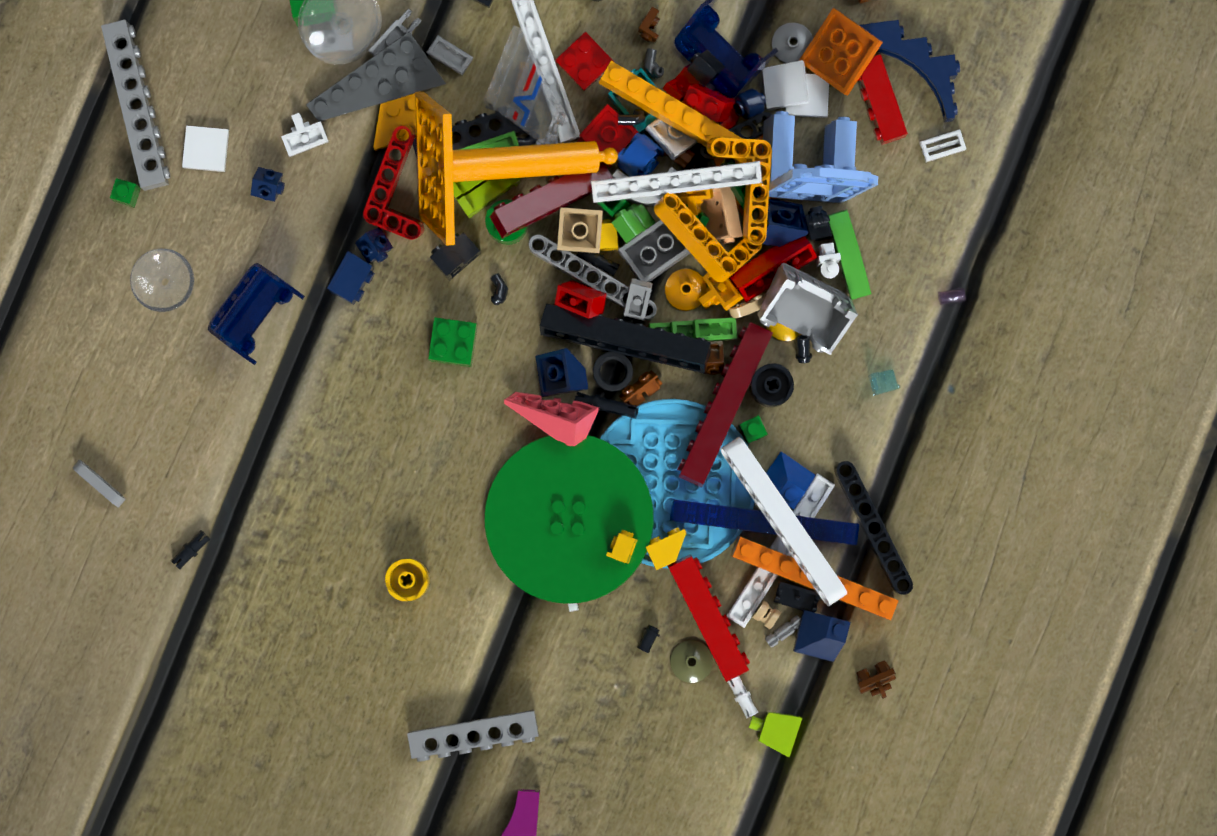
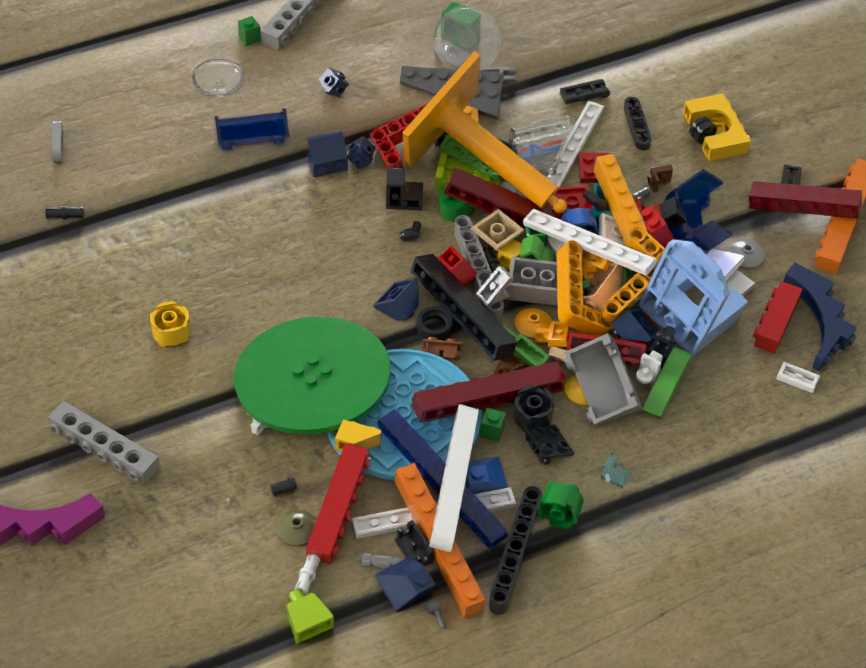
camera: 40 degrees right, 35 degrees down
(205, 148) = (319, 48): white tile -> none
(304, 136) = (382, 81): white hinge -> none
(449, 55) = (515, 106): light grey plate -> none
(453, 342) = (351, 232): green brick -> none
(560, 420) = (369, 315): coral wedge -> none
(609, 405) = (405, 331): black pin -> none
(623, 546) = (327, 405): yellow brick -> none
(770, 618) = (381, 540): tan wheel -> none
(803, 349) = (578, 408): black pin -> none
(809, 402) = (547, 442): none -> black hinge
(840, 51) = (775, 268): orange plate -> none
(858, 634) = (434, 607): none -> dark grey hand
(875, 461) = (560, 504): none -> green brick
(877, 682) = (414, 645): reddish brown hips -> none
(951, 296) = (718, 461): clear purple pin -> none

